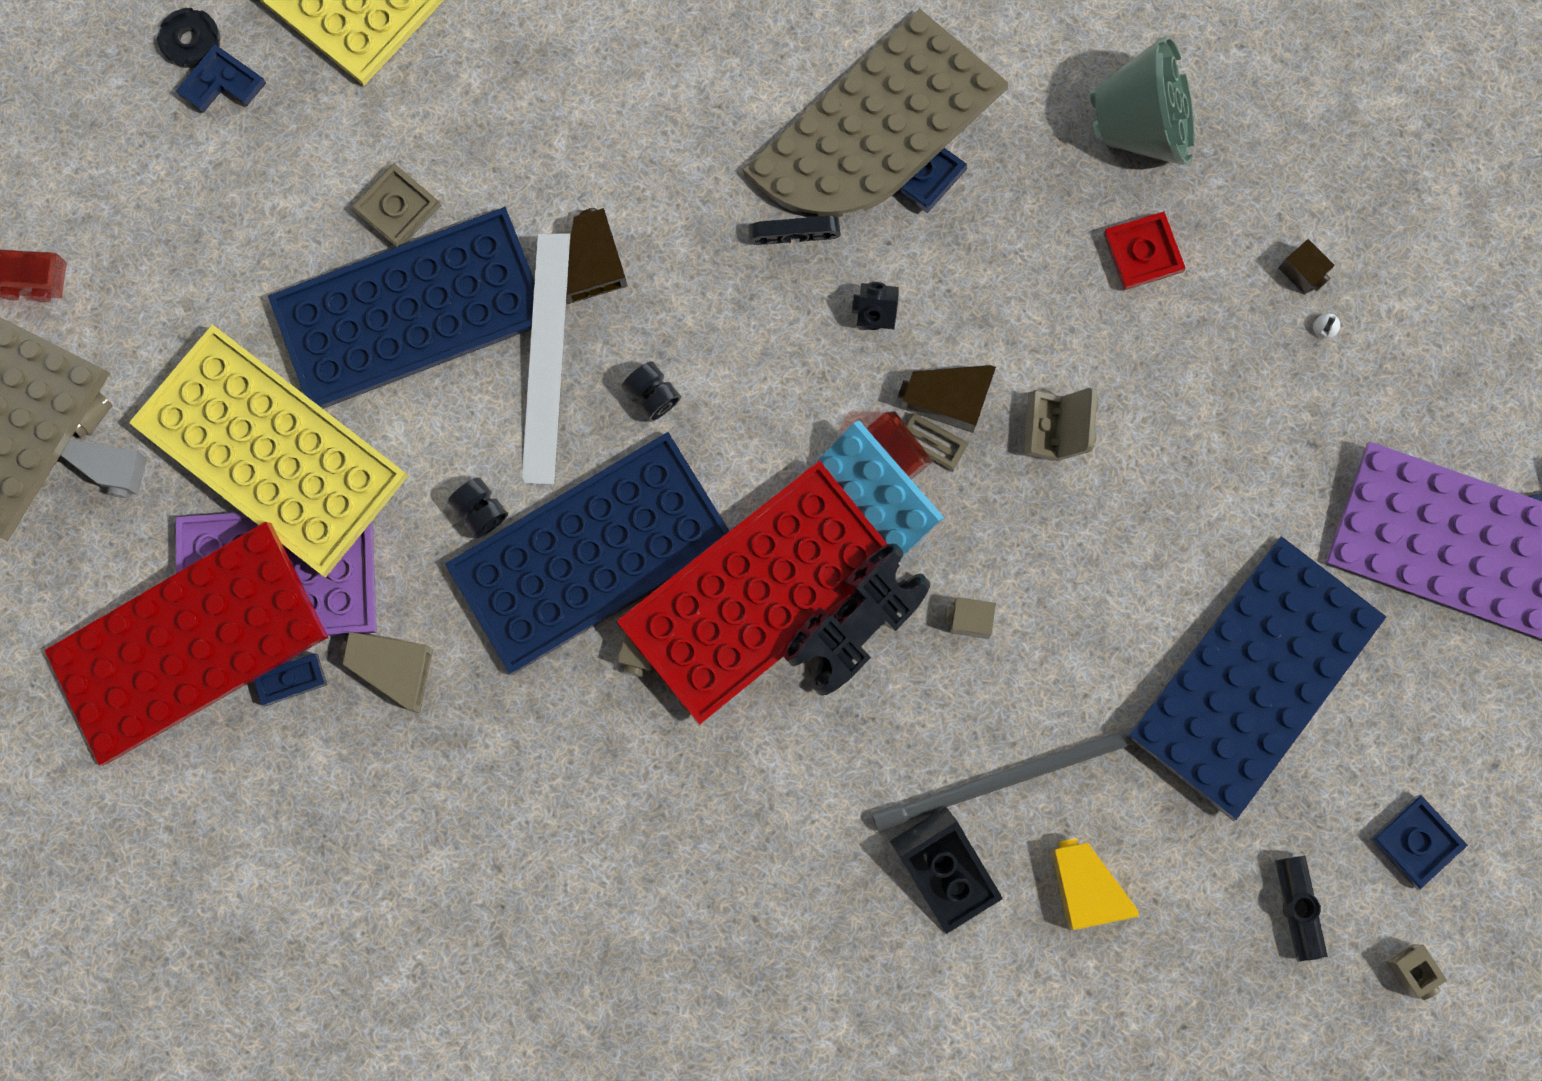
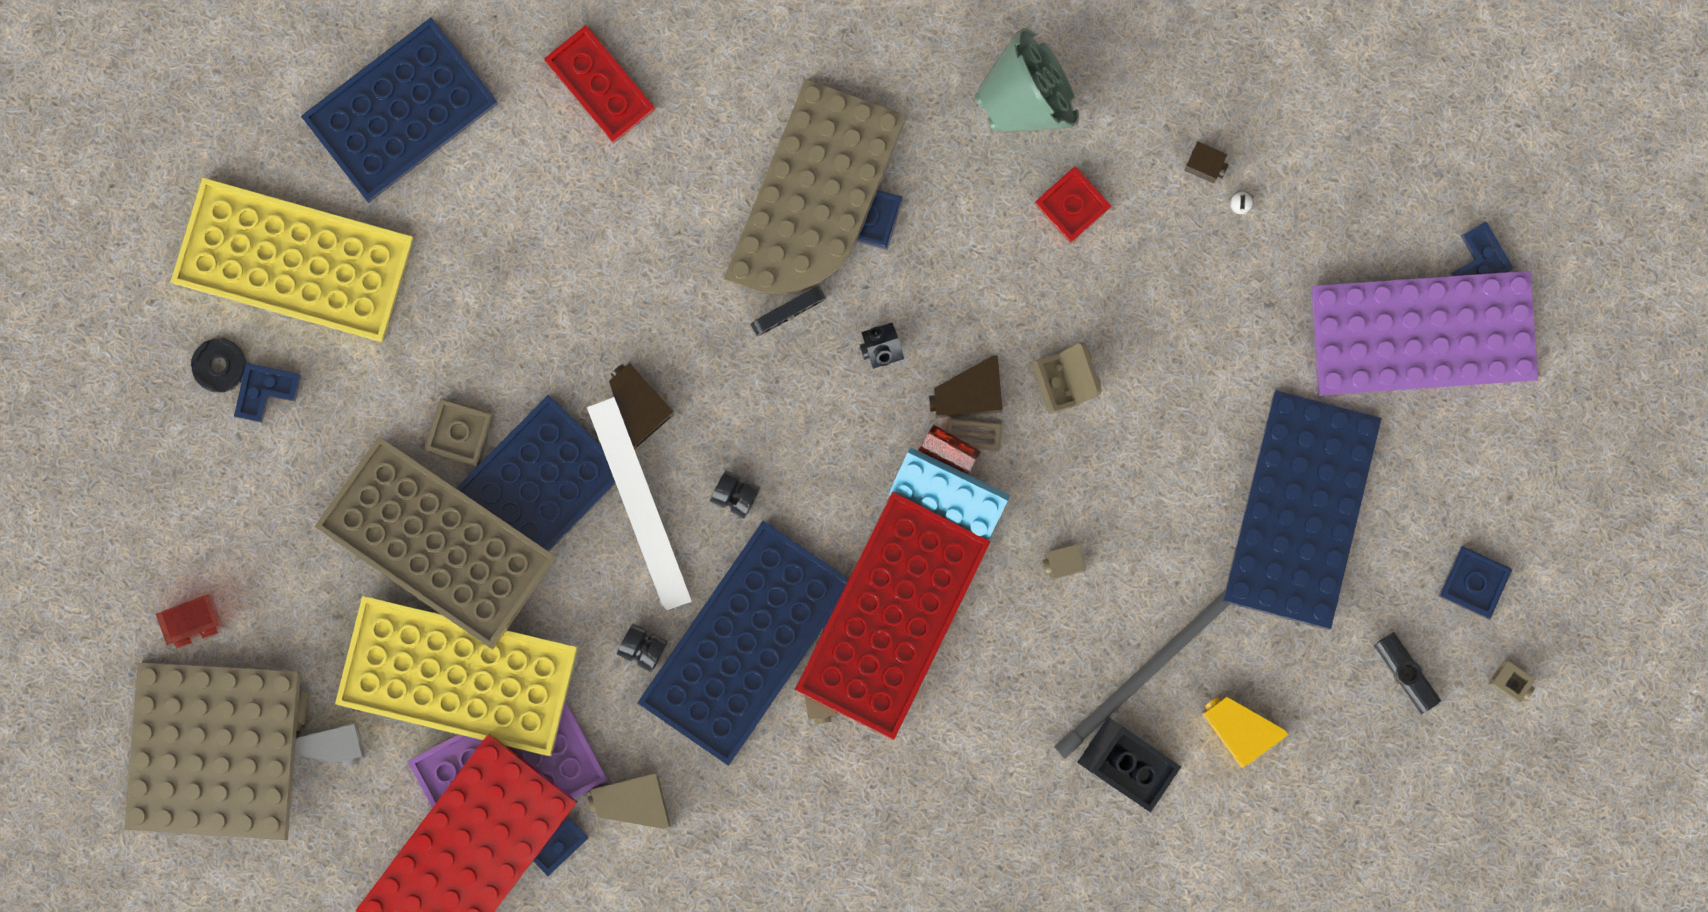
camera: 30 degrees left, 5 degrees up
(314, 303) = (436, 542): none -> dark tan plate
(841, 635) = (977, 603): black piece -> none

